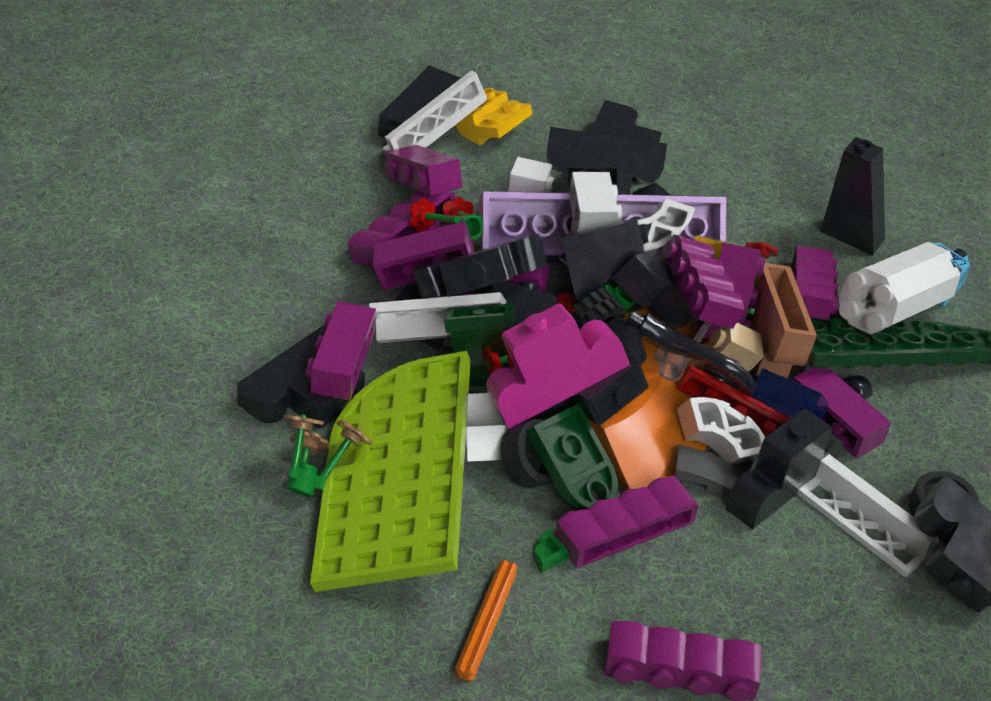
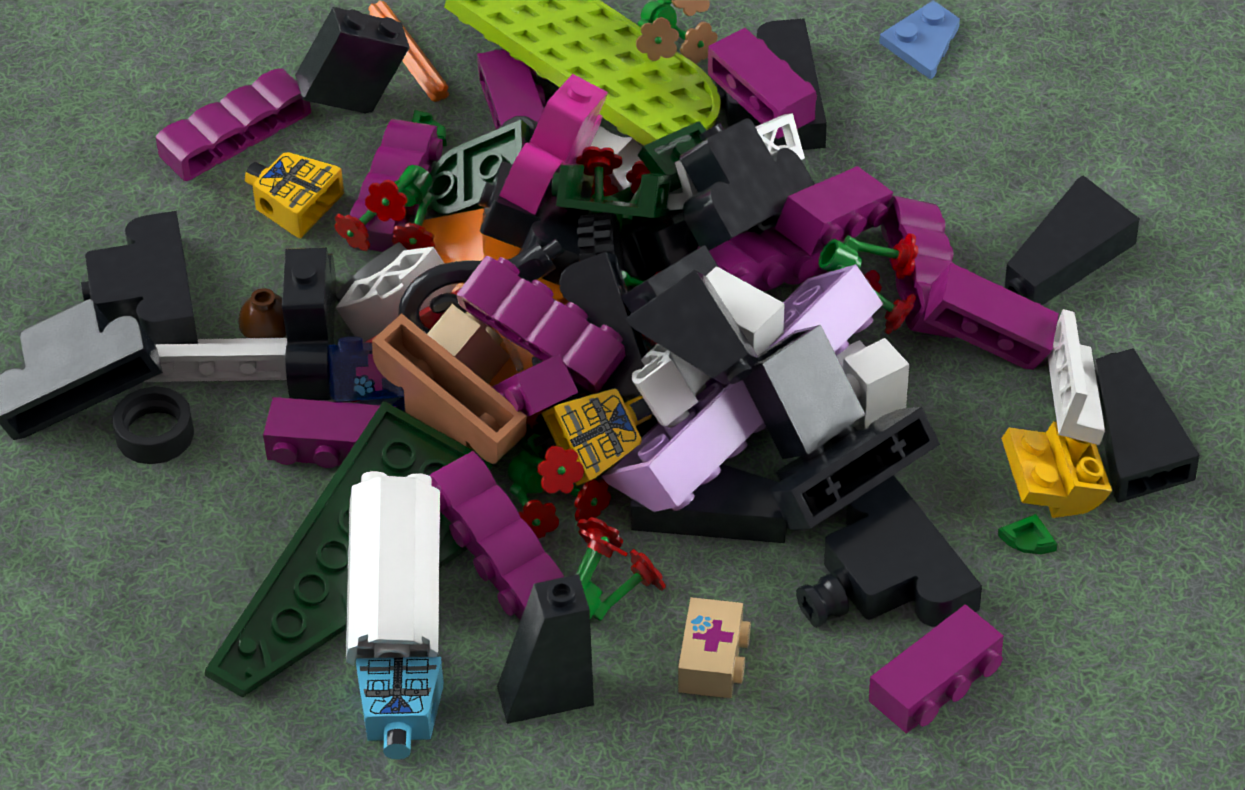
camera: 140 degrees right, 5 degrees up
(172, 342) = (922, 37): none -> medium blue wing
(314, 184) = (1071, 243): none -> black slope
(485, 500) = (509, 87): none -> magenta brick
(538, 121) = (1028, 536): none -> green tile
(564, 284) = (652, 197): none -> dark green panel
(572, 586) = (352, 60): none -> black brick
(642, 470) = (388, 202): none -> red plant
(644, 190) = (697, 328): none -> black slope
(665, 105) = (936, 669): none -> magenta brick
(676, 160) = (822, 600): none -> black wheel
(696, 571) = (295, 190): none -> yellow torso
(754, 182) = (711, 648): none -> tan brick
(772, 219) = (604, 541): none -> plant
(801, 516) = (262, 315): none -> reddish brown brick
(869, 587) = (145, 280): none -> black brick

